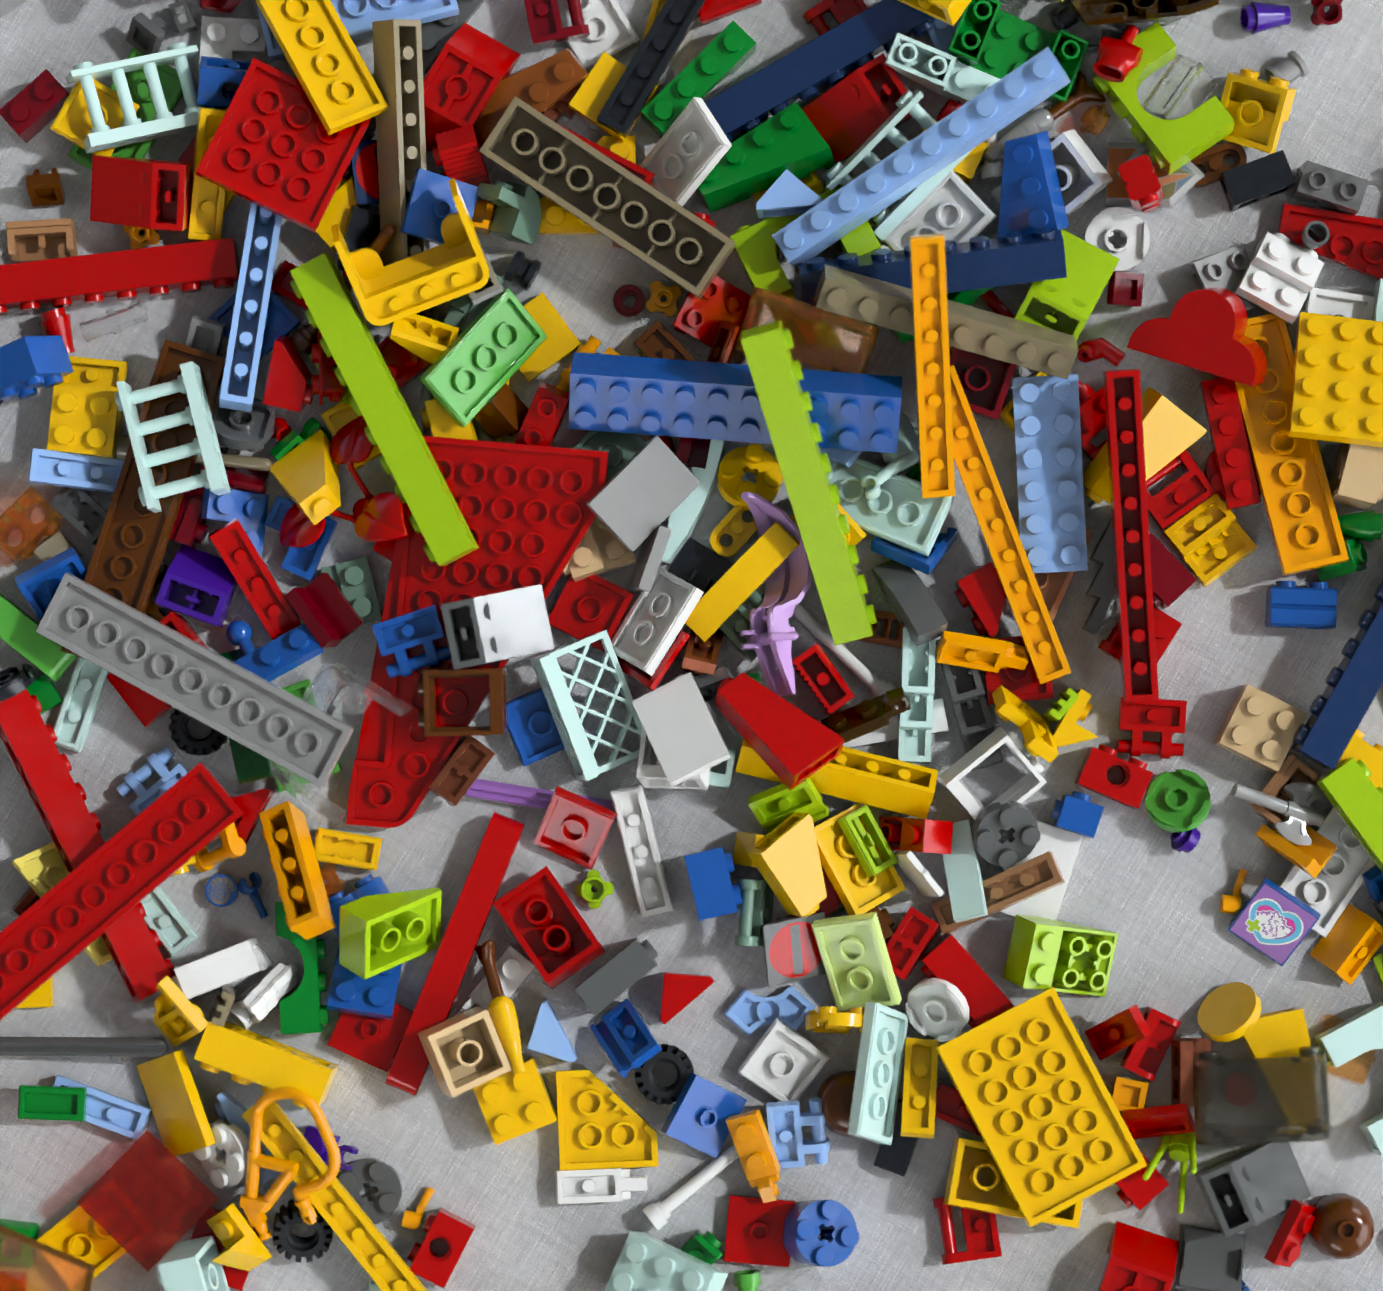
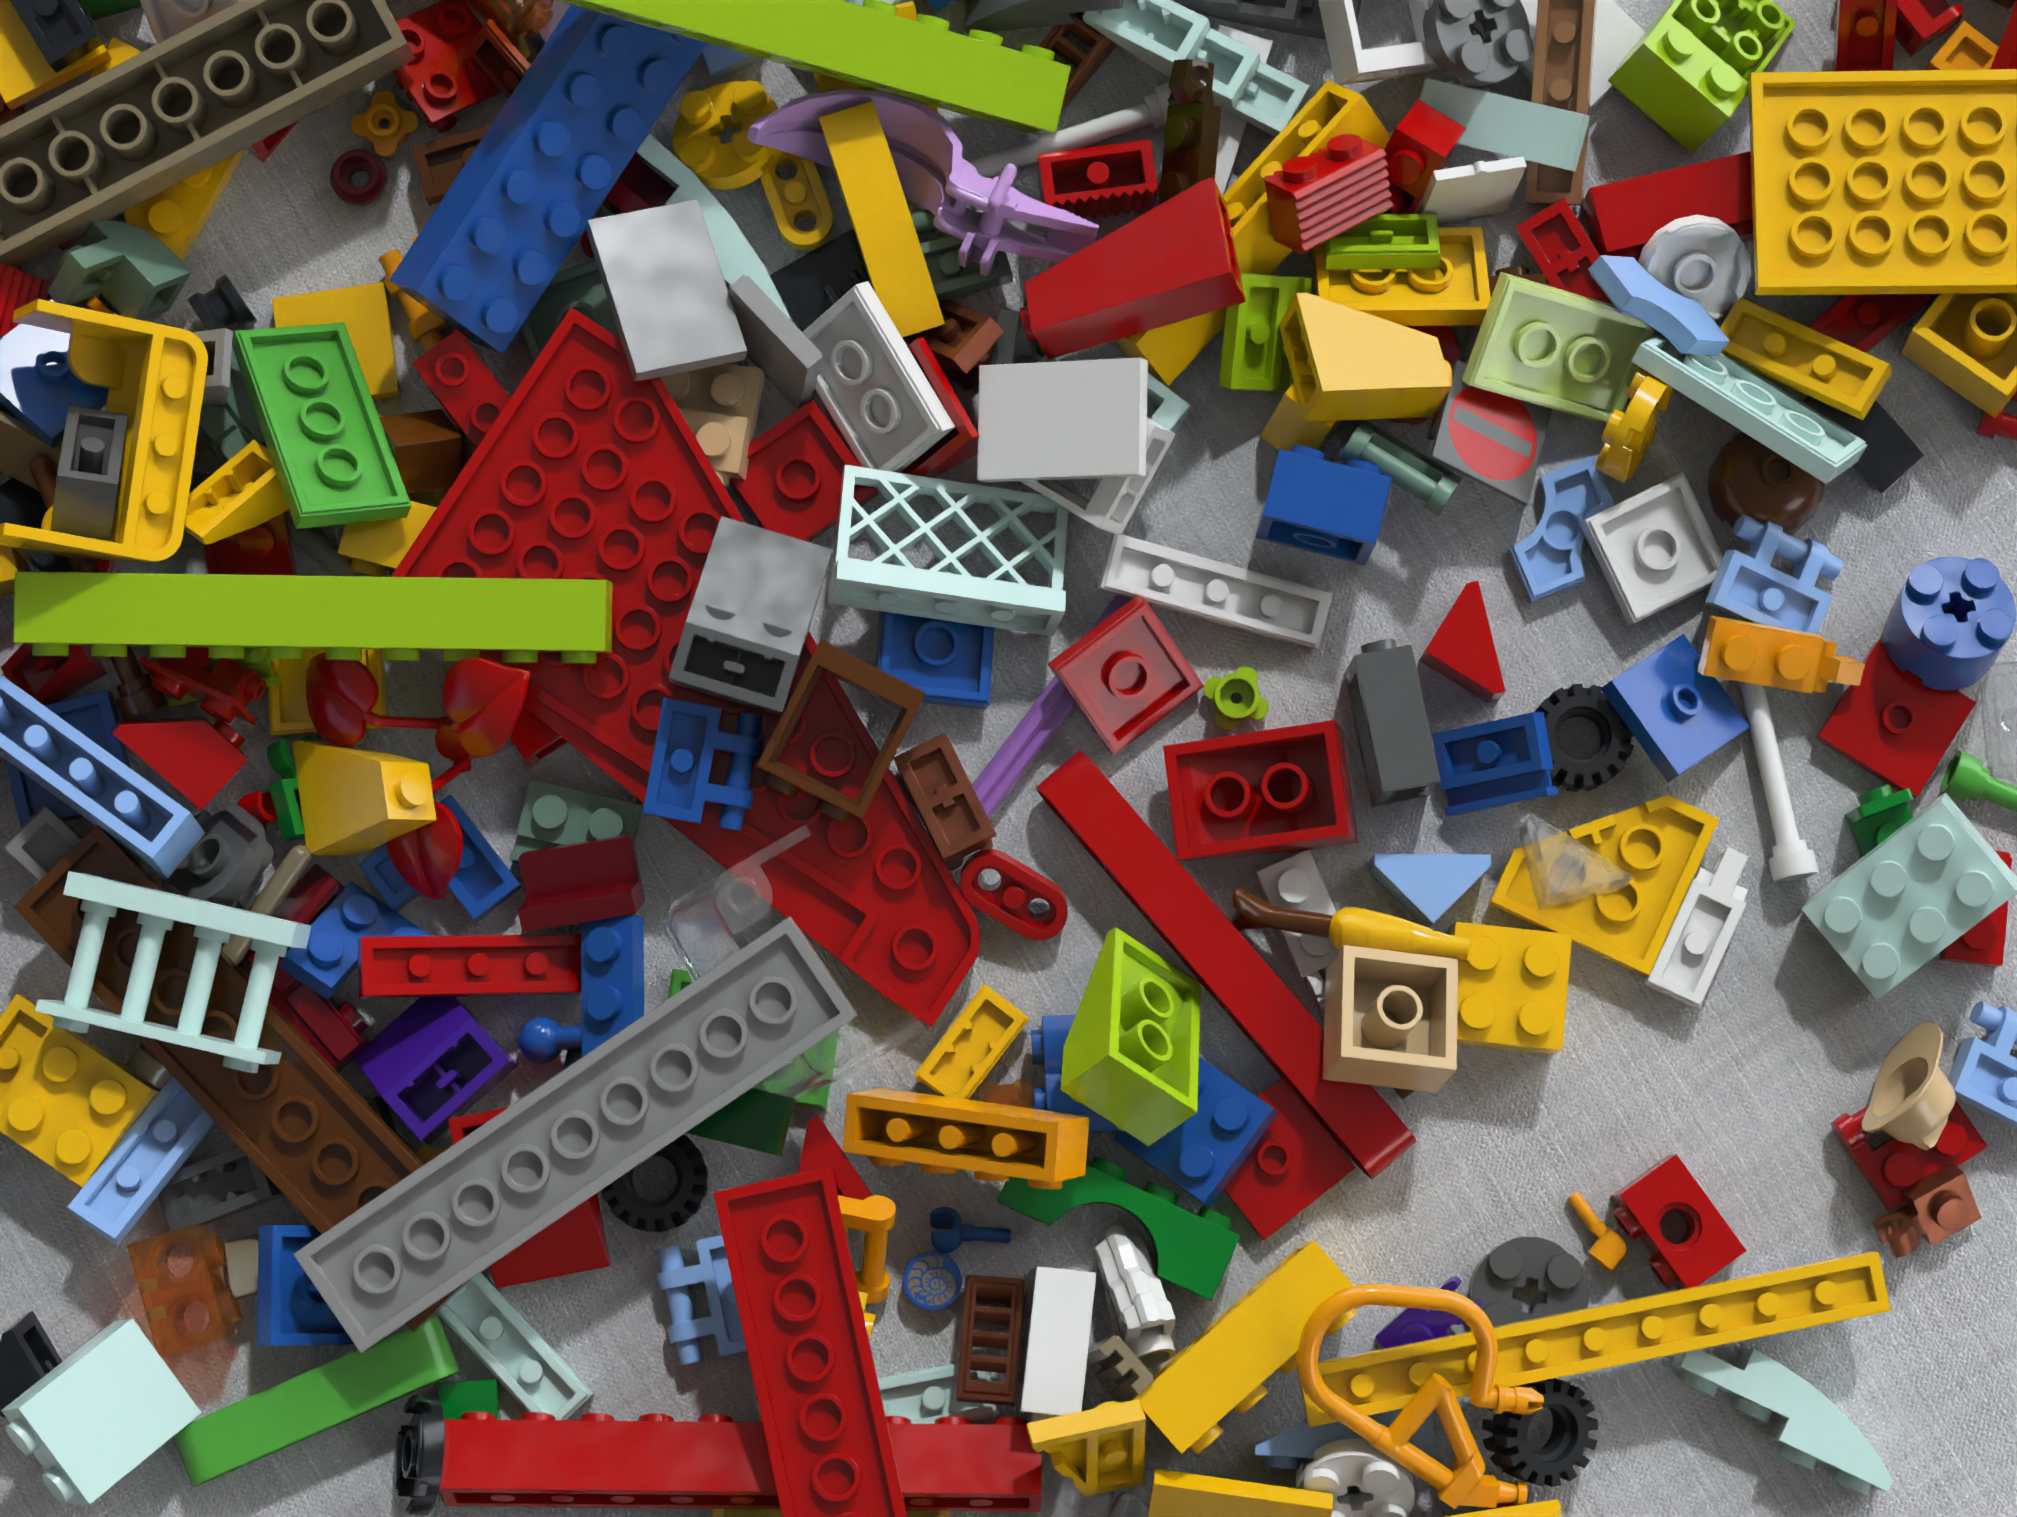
camera: 60 degrees left, 5 degrees down
(232, 924) = (996, 1291): none -> copper slope
(394, 260) = (89, 473): none -> dark grey slope
(433, 828) = (1010, 896): none -> red plate
(587, 1101) = (1564, 868): none -> clear slope
(873, 802) = (1327, 192): none -> red brick
(904, 1010) = (1643, 297): none -> light blue tile

